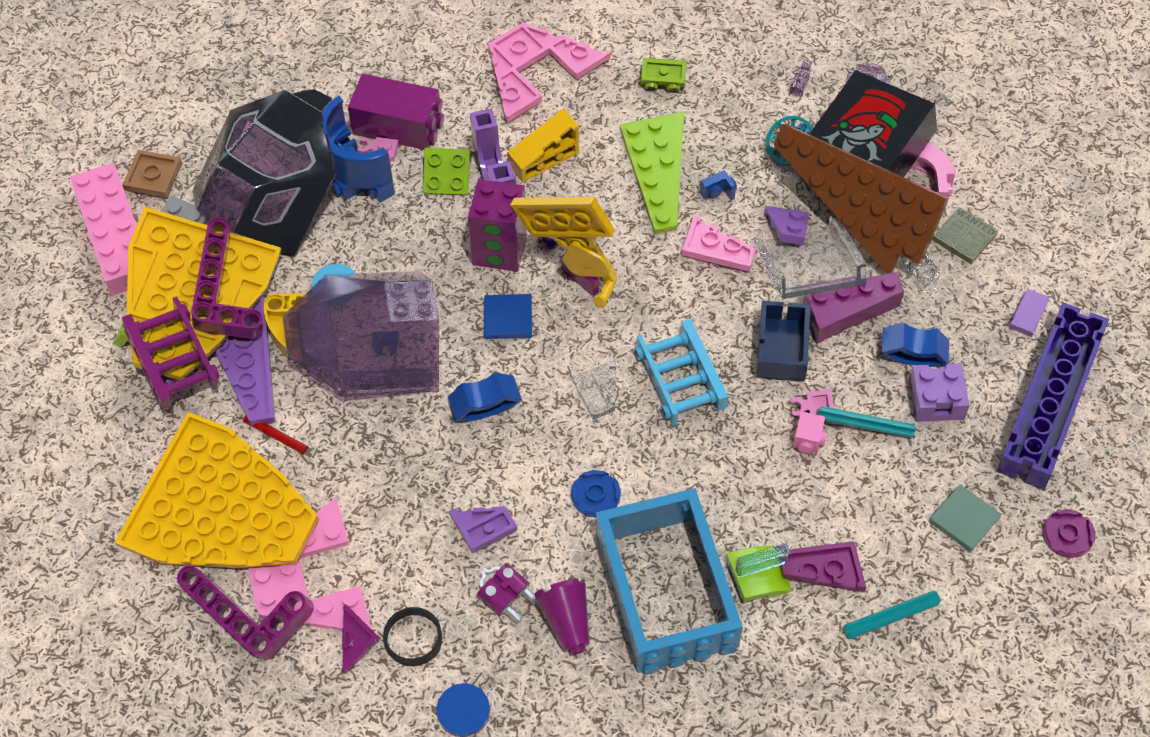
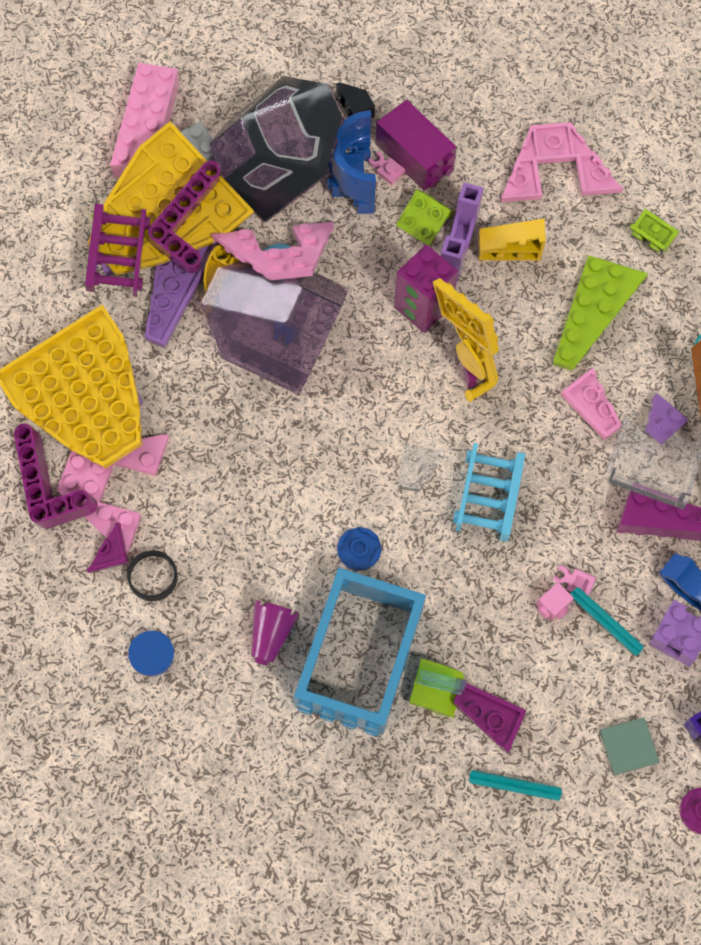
camera: 30 degrees right, 10 degrees up
(152, 173) = (203, 92): medium nougat plate -> none
(279, 436) = (161, 362): red bar -> none
(355, 268) = (280, 263): none -> bright pink wing
(483, 525) = (258, 522): medium lavender wing -> none
(484, 397) = (327, 422): blue brick -> none
(504, 589) = (240, 581): magenta piece -> none
(508, 316) = (390, 366): blue tile -> none
(716, 184) = (629, 351): blue bracket -> none
(782, 342) = (586, 515): dark blue piece -> none

